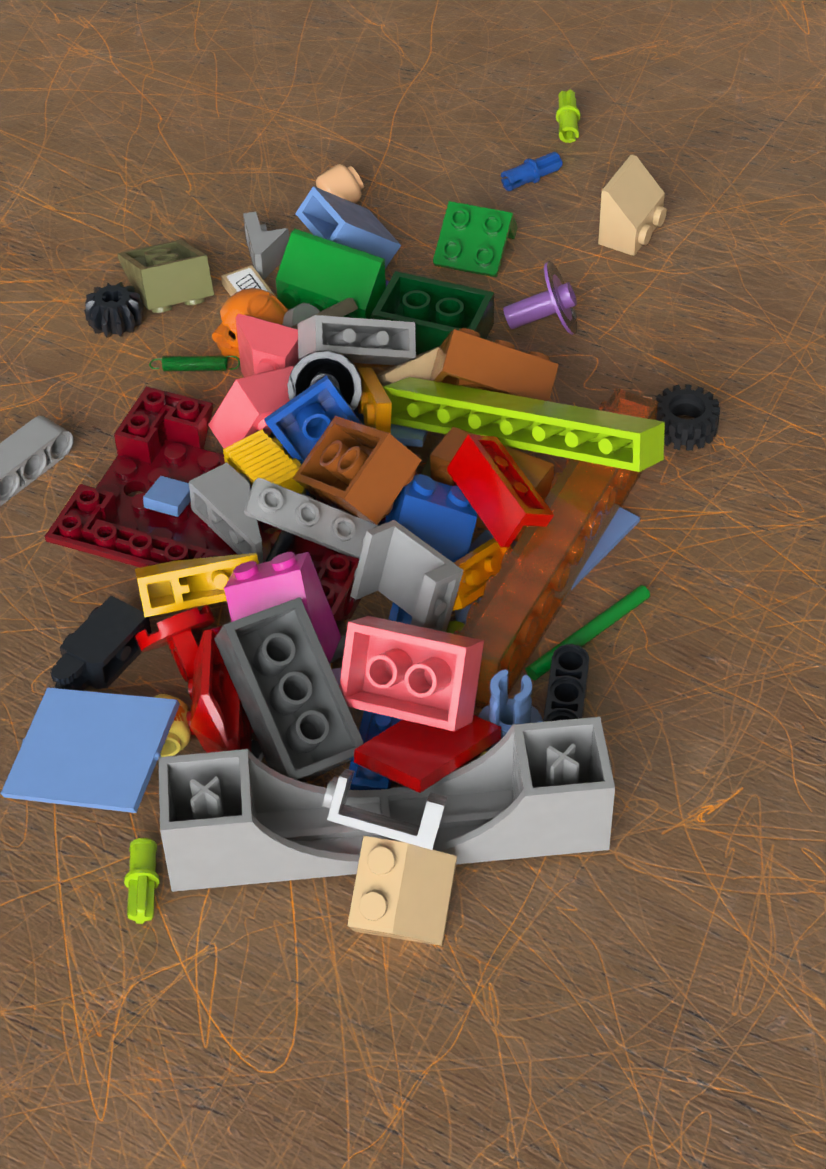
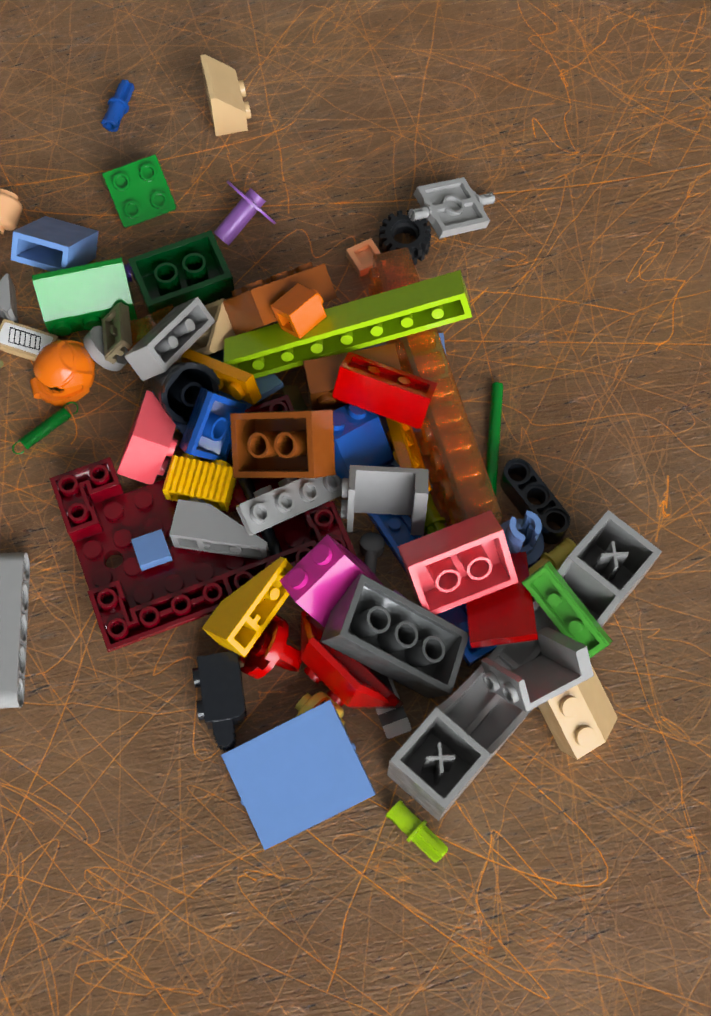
camera: 45 degrees left, 20 degrees up
(265, 345) = (108, 392): coral slope -> none
(473, 789) = (566, 608): none -> bright green tile
(486, 376) = (299, 310): none -> orange brick
(568, 116) = (98, 41): lime axle -> none
(761, 417) = (451, 207): none -> light grey plate

